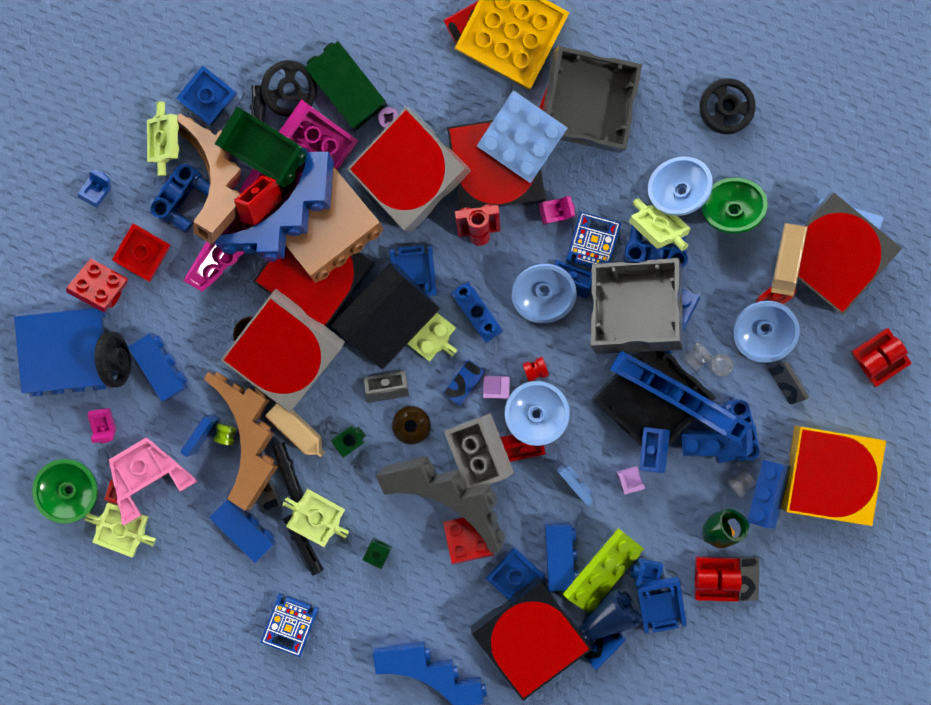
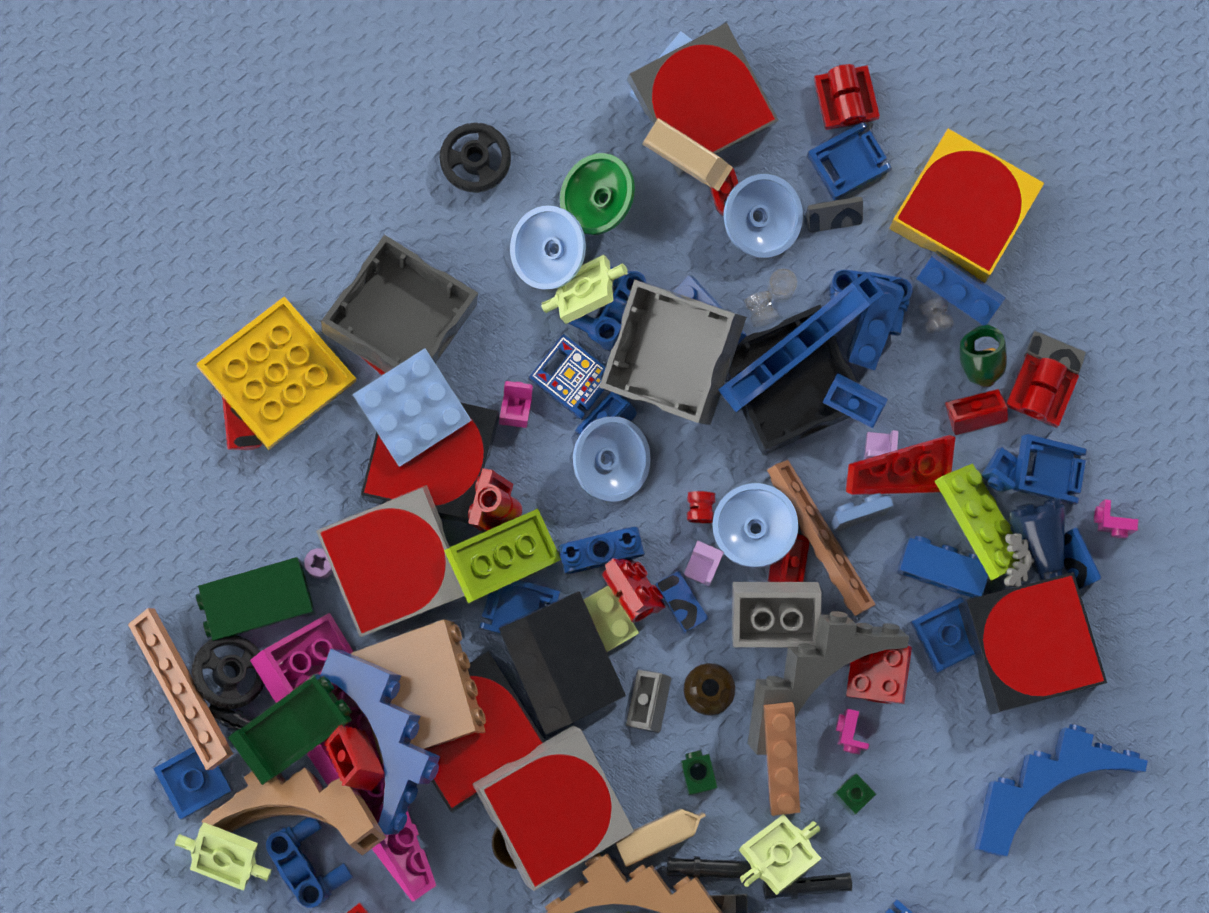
camera: 70 degrees left, 10 degrees down
(263, 59) = (180, 689): none -> nougat plate
(380, 494) = (782, 758): none -> nougat plate
(422, 530) = (846, 726): none -> dark pink bracket
(443, 244) = (502, 555): none -> lime plate
(461, 342) = (629, 582): none -> red plate
(547, 463) = (822, 539): none -> nougat plate
(591, 607) = (1018, 574): none -> light grey animal
(617, 503) = (903, 470): none -> red wing
(638, 668) = (1117, 526): none -> dark pink bracket
(683, 538) = (977, 412): none -> red slope
(836, 378) = (852, 158): none -> blue container

